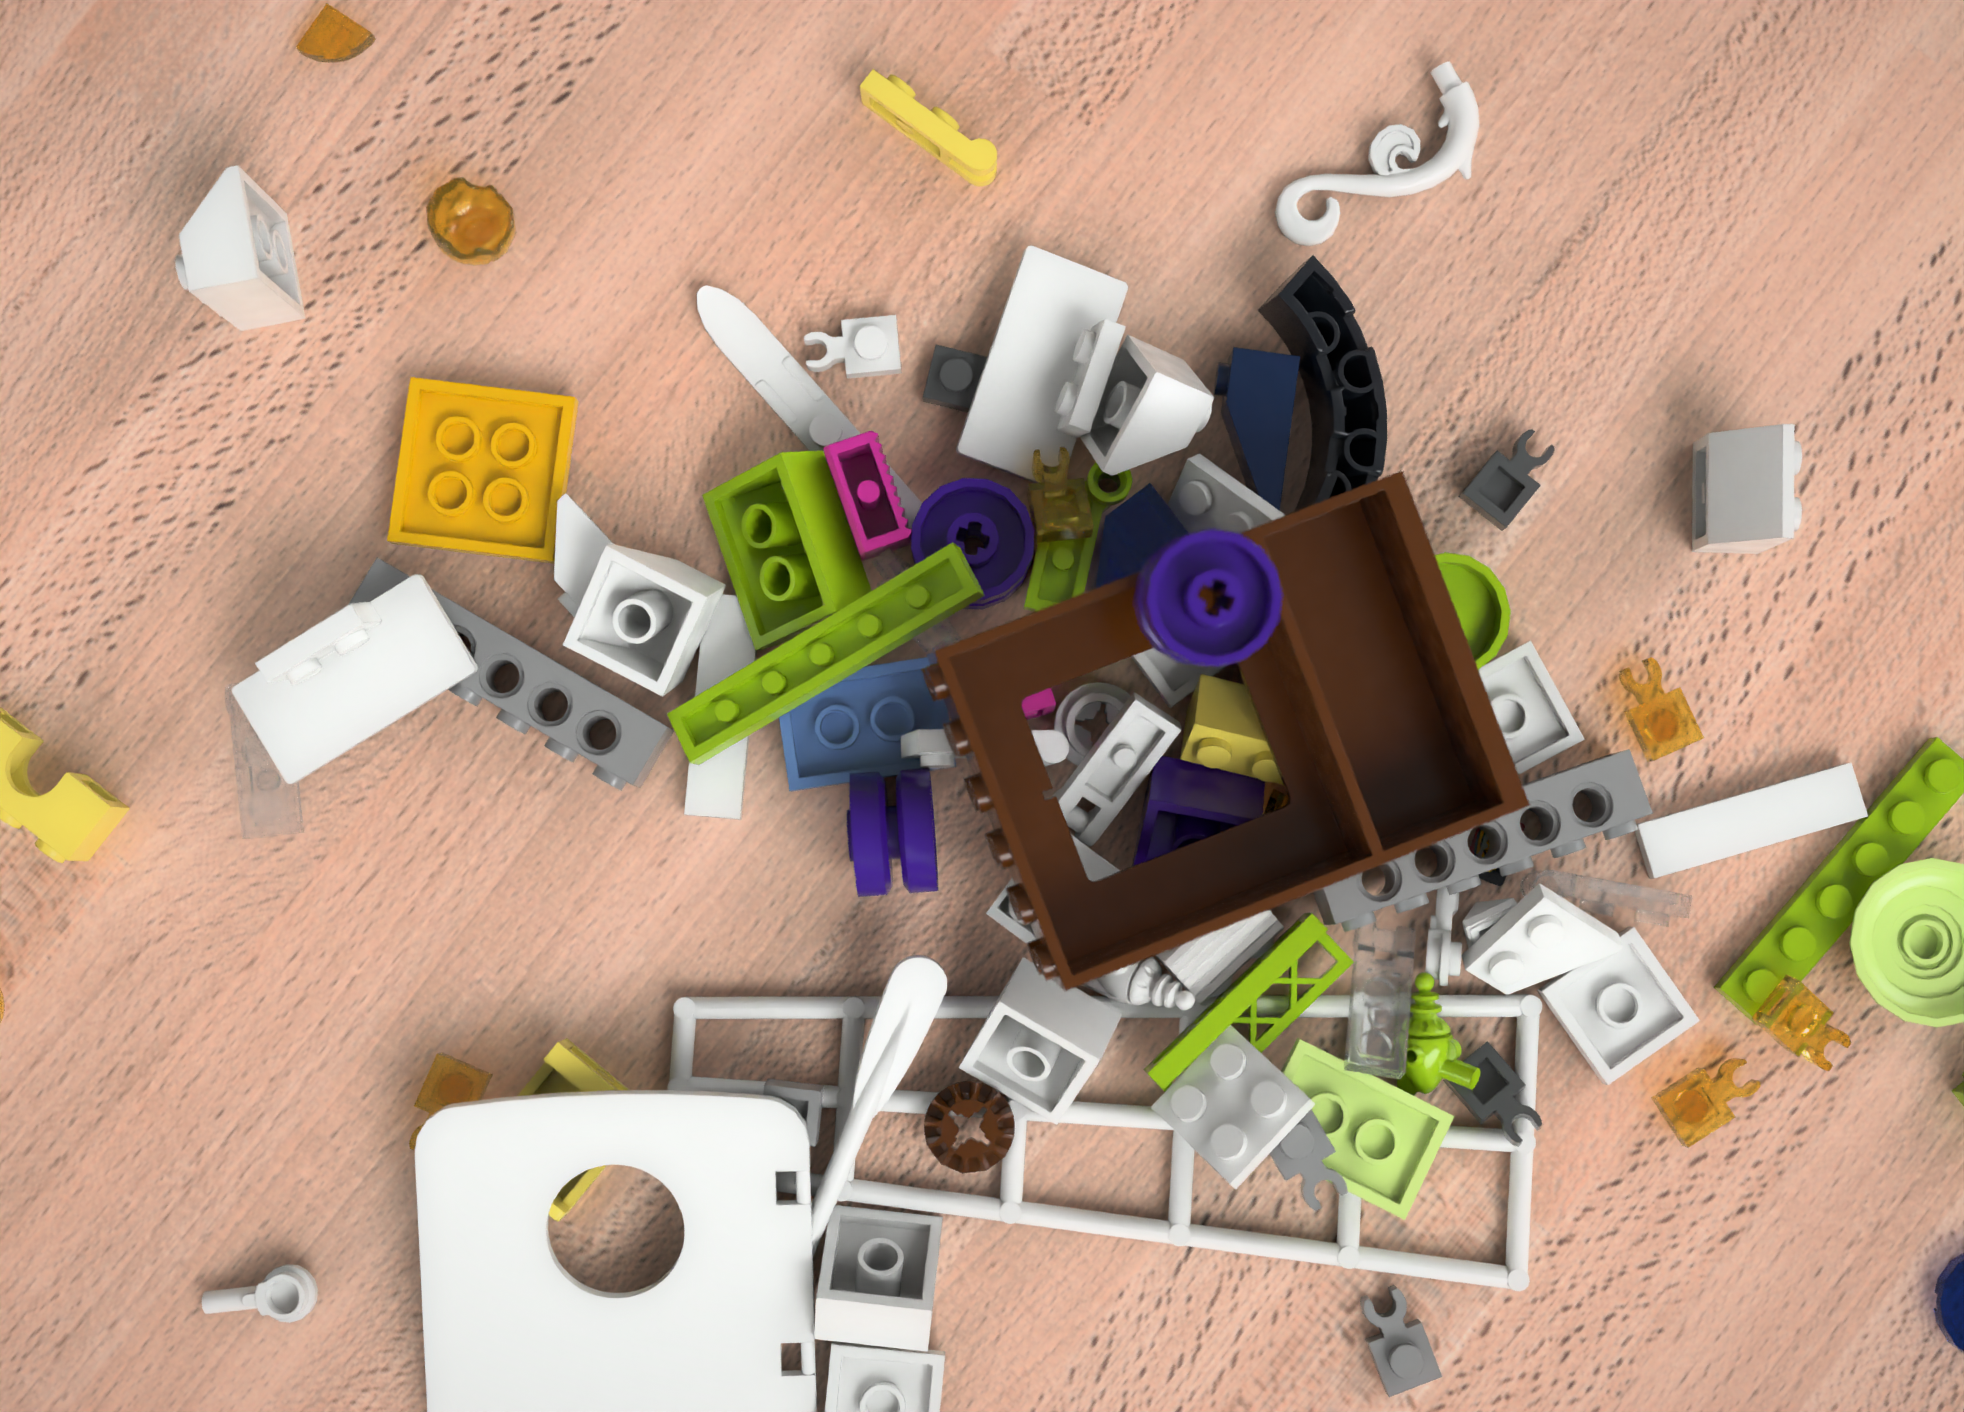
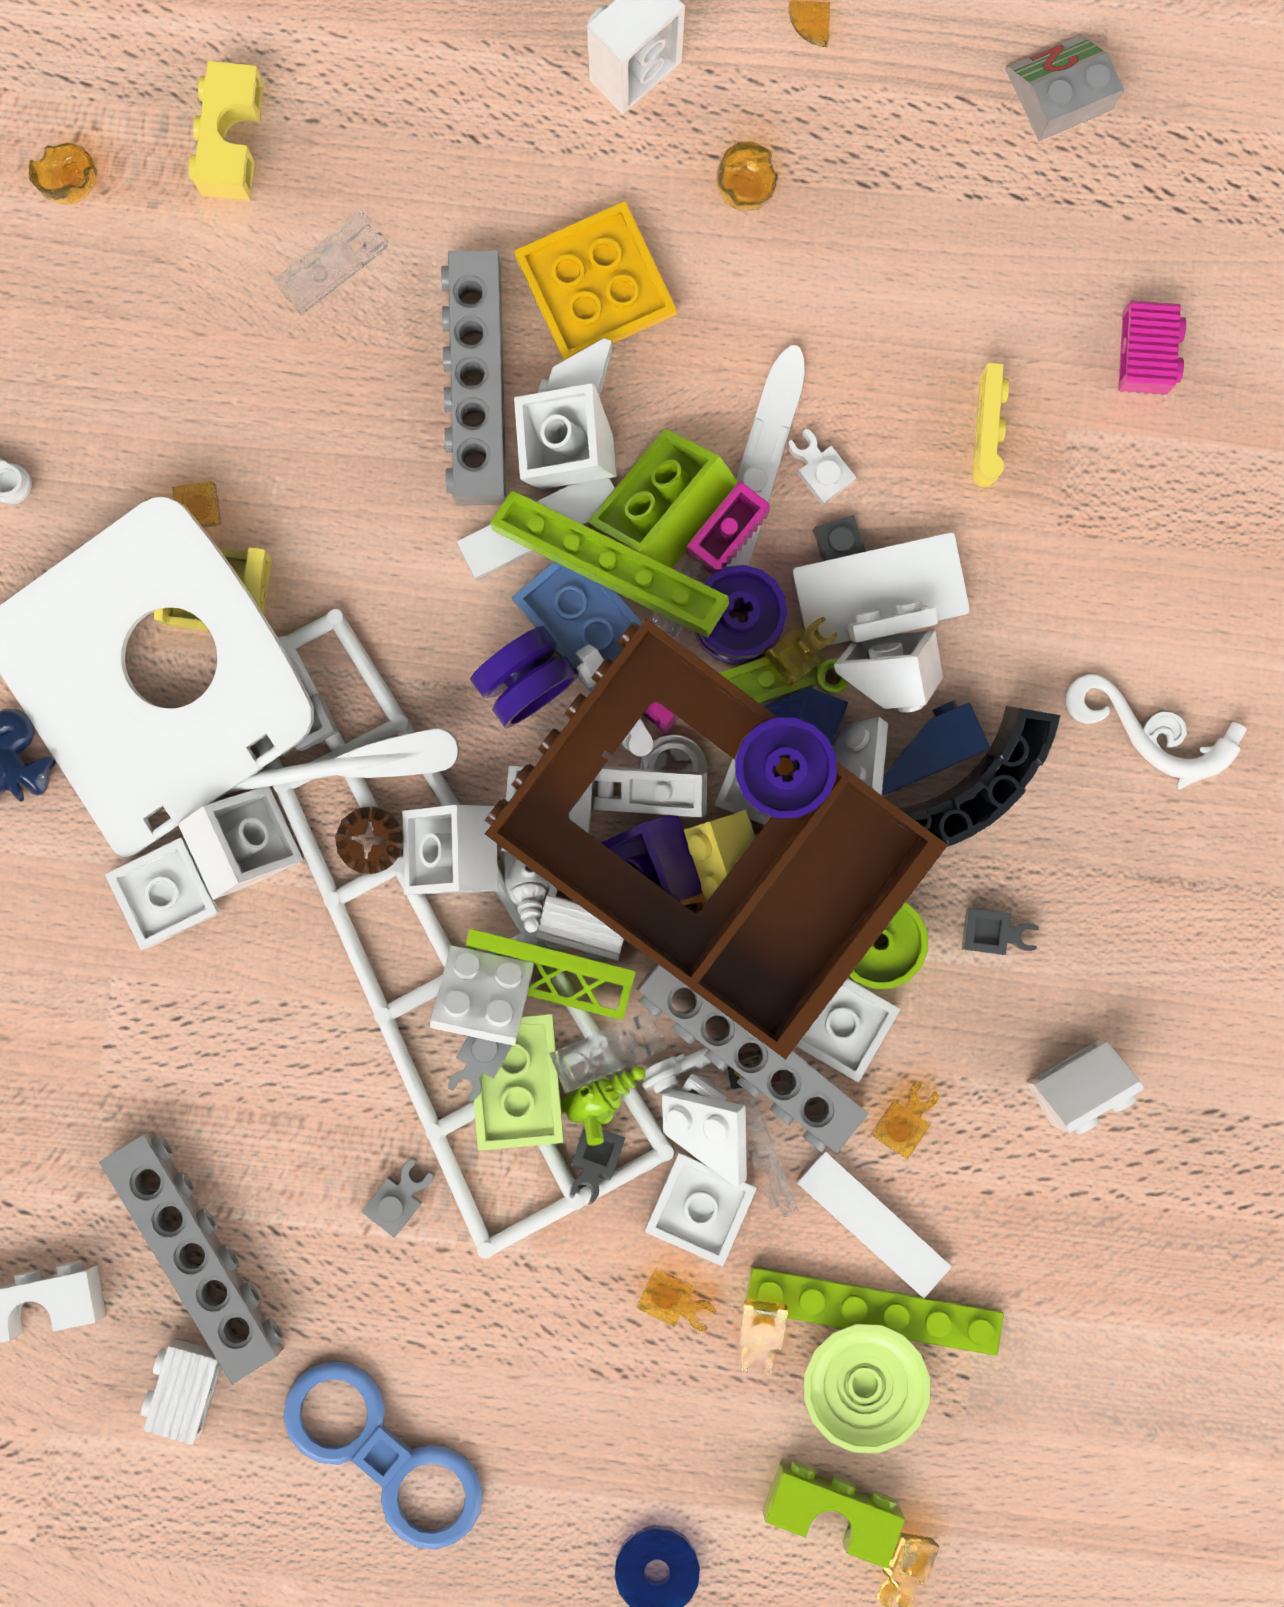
camera: 55 degrees right, 0 degrees up
(352, 677) = (413, 281): white bracket -> none

